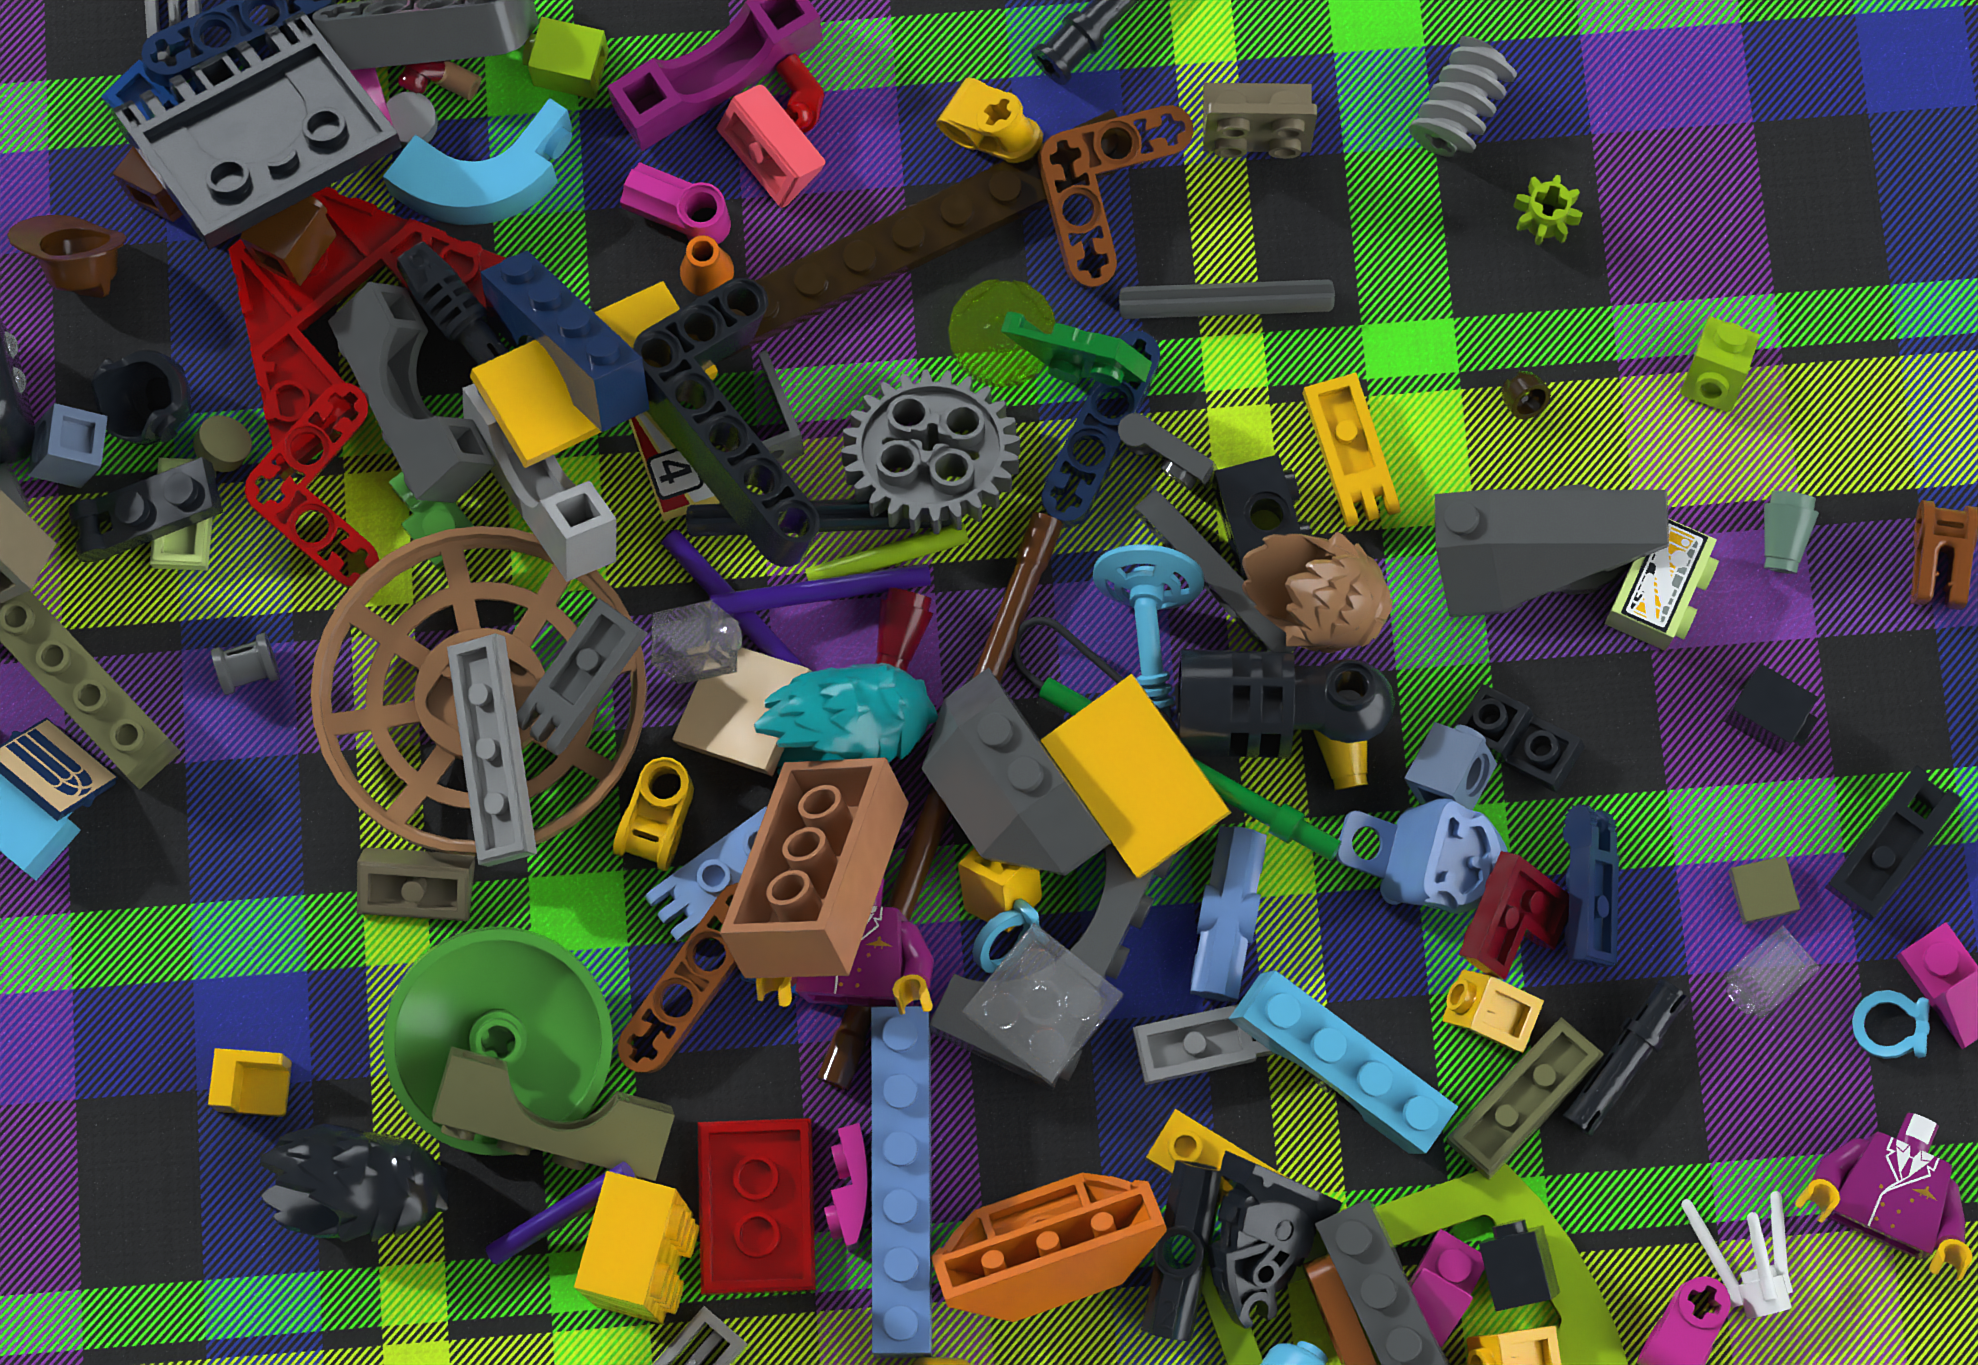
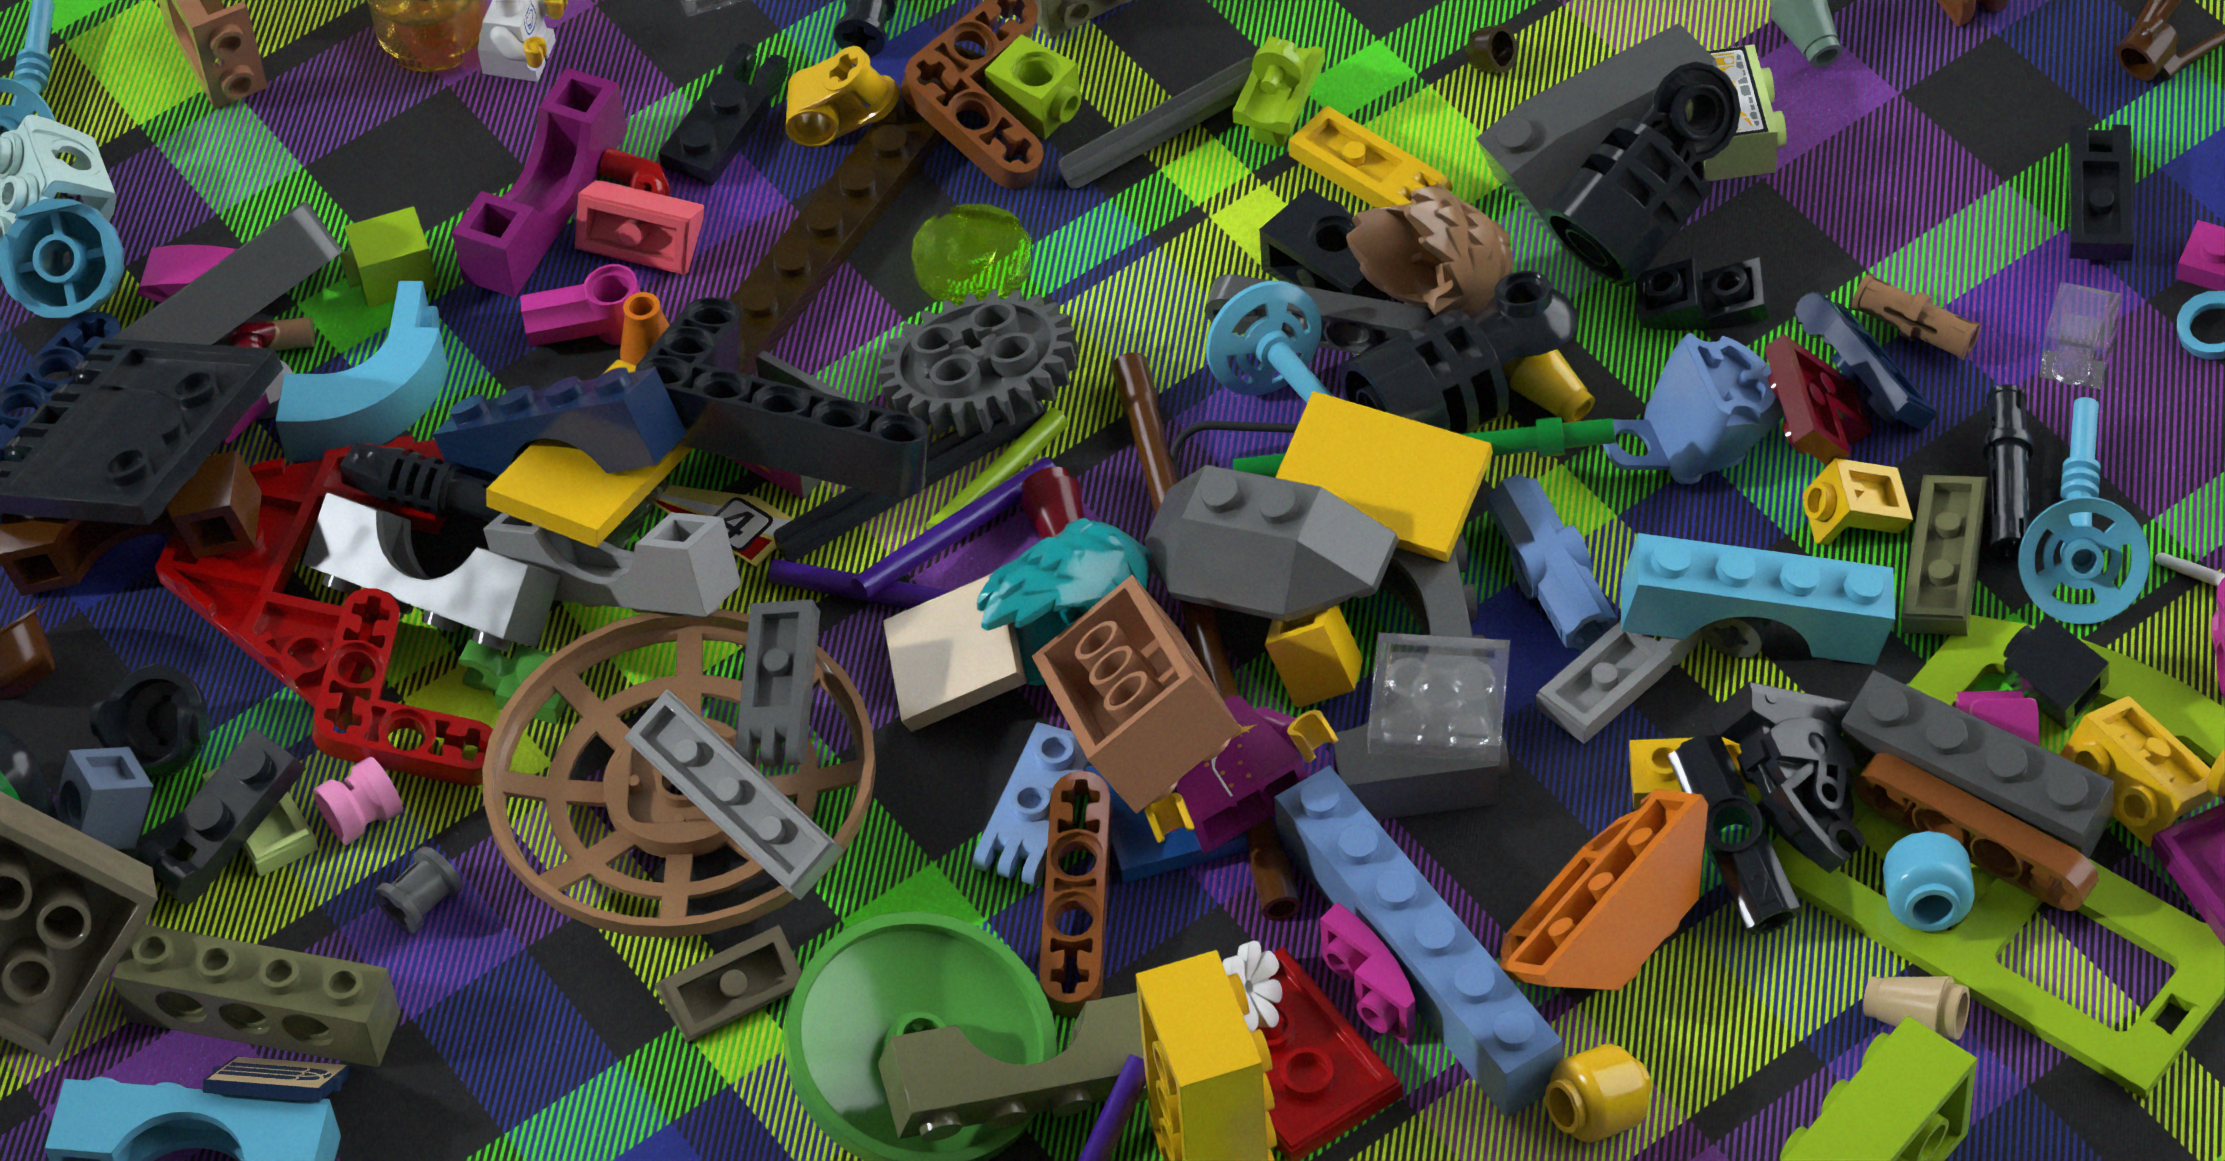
camera: 30 degrees left, 25 degrees down
(222, 443) = (268, 719): olive tile -> none
(248, 557) = (358, 800): none -> bright pink wheel
(655, 817) = (933, 787): yellow piece -> none
(695, 642) = (869, 618): clear brick -> none
(752, 1150) = (1254, 972): none -> white plant
(902, 73) = (724, 116): none -> black hinge
(1020, 914) = (1360, 657): medium azure piece -> none
(1078, 353) = (1061, 204): green wing -> none
(1096, 427) = (1124, 274): dark blue beam -> none
(1148, 183) = (1035, 85): none -> lime brick
(1180, 460) = (1225, 234): dark grey plate -> none
(1330, 331) = (1277, 89): none -> lime hips
(1451, 766) = (1654, 328): sand blue brick -> none
(1522, 623) = (1640, 178): none -> black cylinder
(1622, 1158) = (2083, 543): none -> medium azure dish
(1663, 868) = (1916, 316): none -> medium nougat pin
(1764, 890) = (2018, 288): olive tile -> none
(1773, 710) = (1910, 150): black brick -> none

